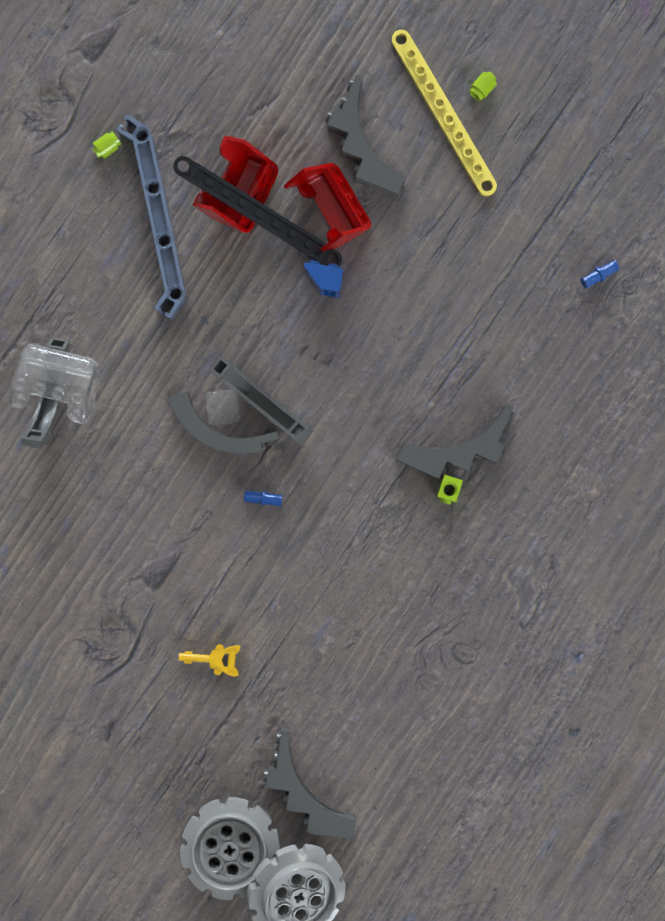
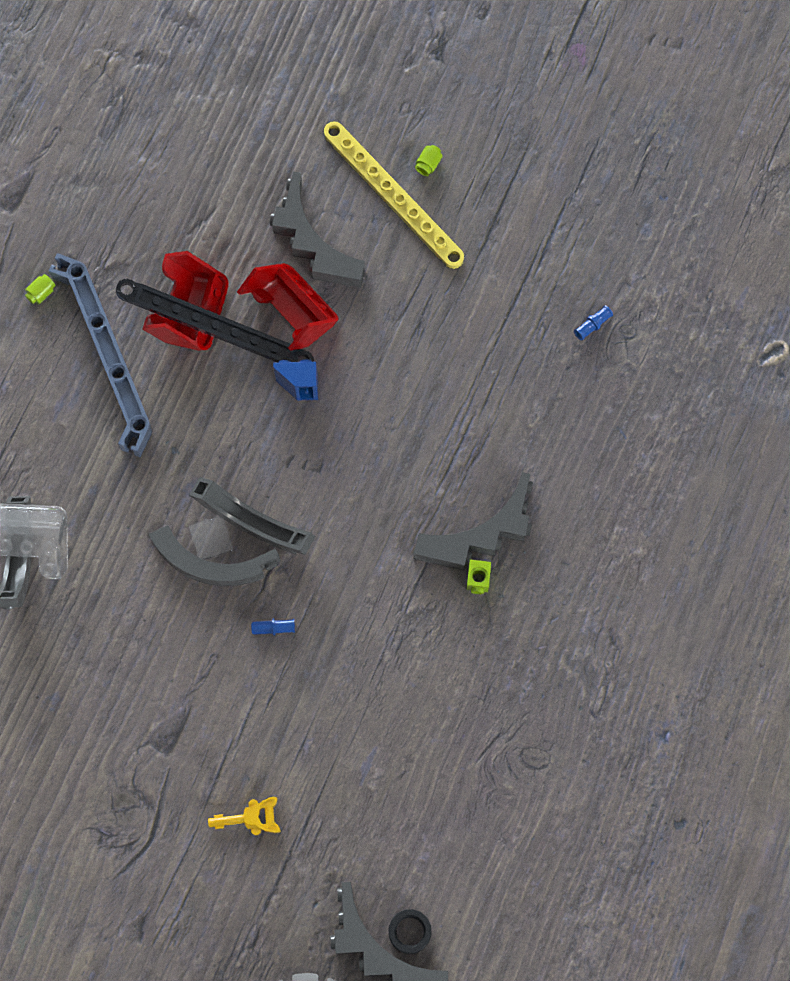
camera: 10 degrees left, 15 degrees down
(331, 794) = (410, 913): none -> black tyre

